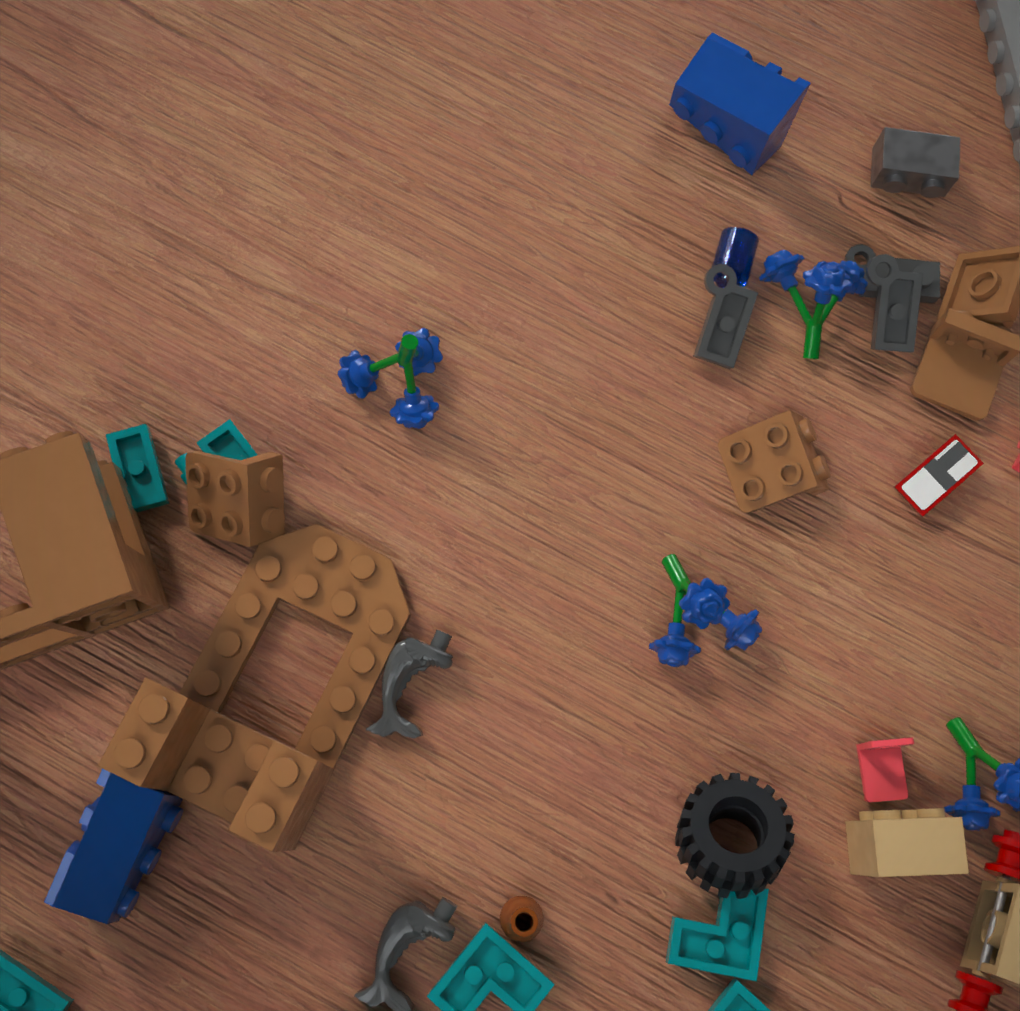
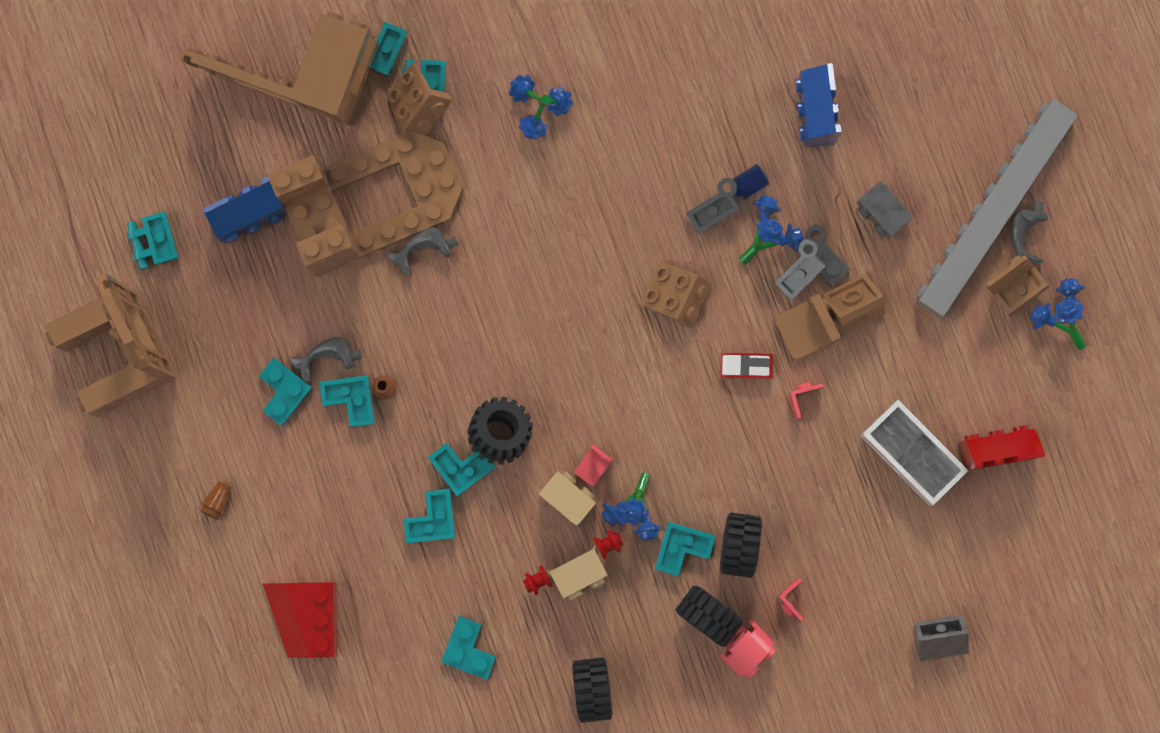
camera: 55 degrees right, 10 degrees up
(702, 606) = (573, 325): blue plant -> none

